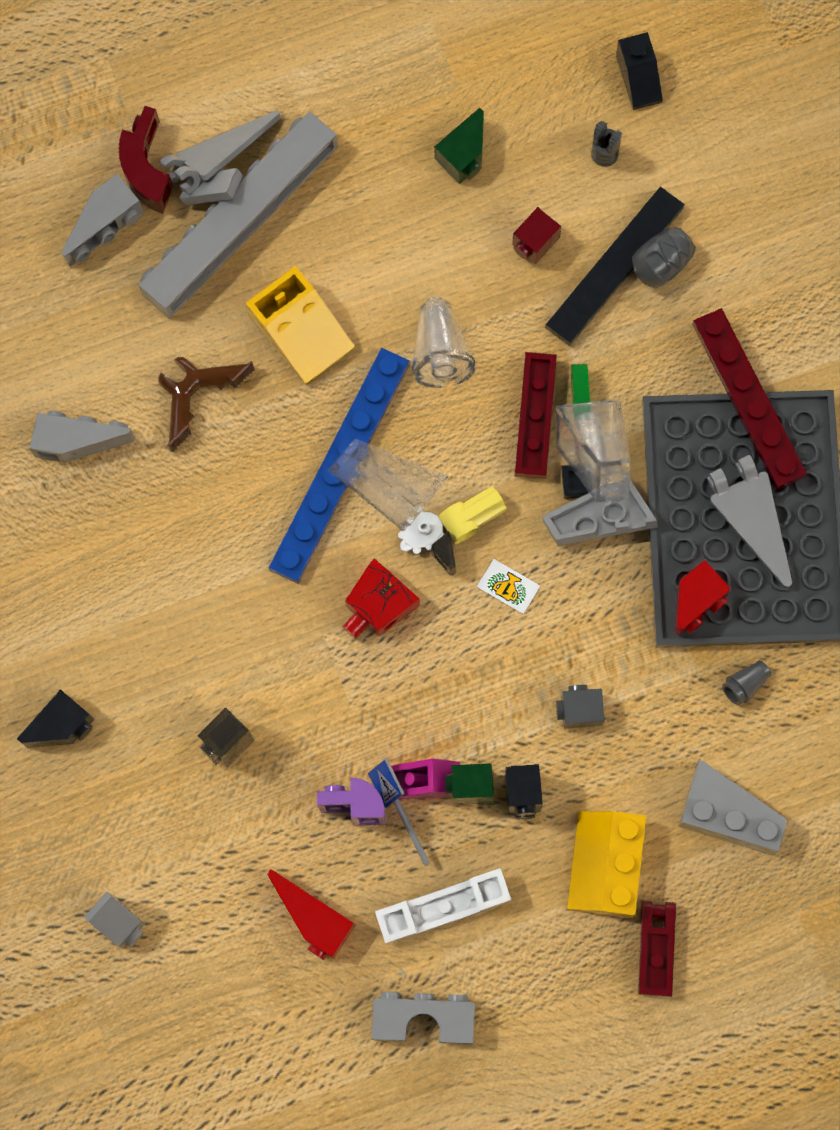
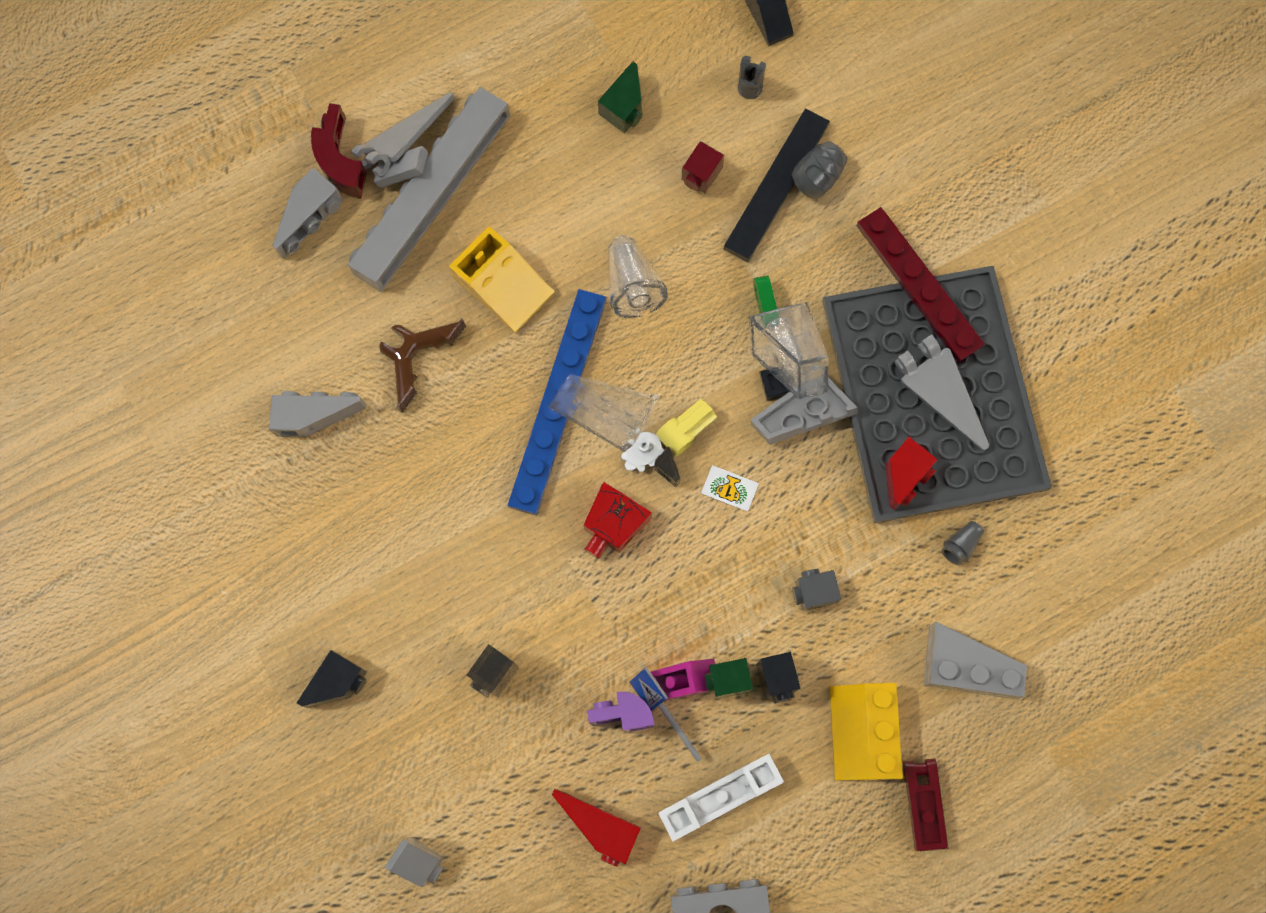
camera: 10 degrees left, 0 degrees up
(535, 415) = (728, 329): dark red plate -> none

